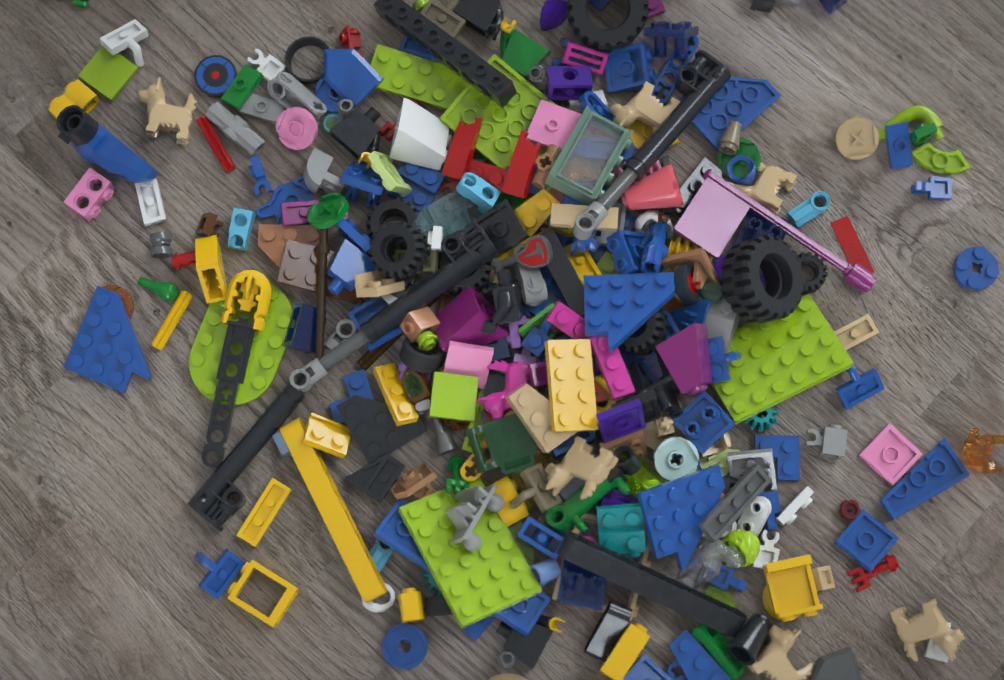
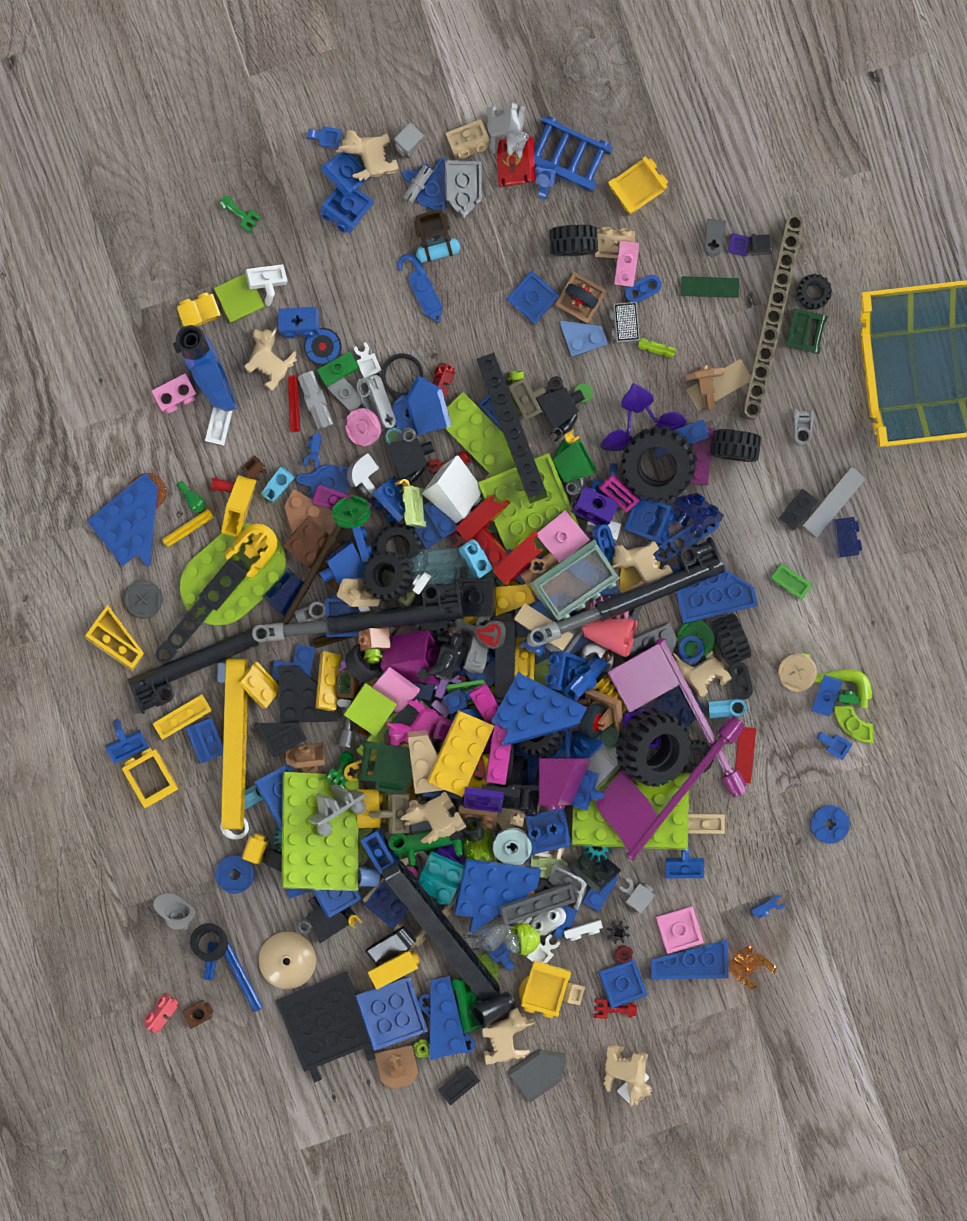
camera: 30 degrees right, 10 degrees up
(151, 470) = (113, 639): none -> yellow wedge
(161, 245) = (209, 464): dark grey wheel -> none
(162, 415) = (143, 599): none -> dark grey tile
(178, 61) = (290, 317): none -> blue brick
(301, 523) = (205, 740): none -> blue plate
(730, 139) = (697, 620): dark tan cone -> none
(775, 136) = (731, 639): none -> black tyre
(775, 357) = (631, 812): none -> magenta flag
(778, 443) = (594, 876): none -> black plate
(798, 57) = (791, 581): none -> bright green plate
(808, 175) = (741, 680): none -> black plate
(837, 489) = (613, 931): none -> black gear
(961, 387) = (763, 909): none -> blue plate

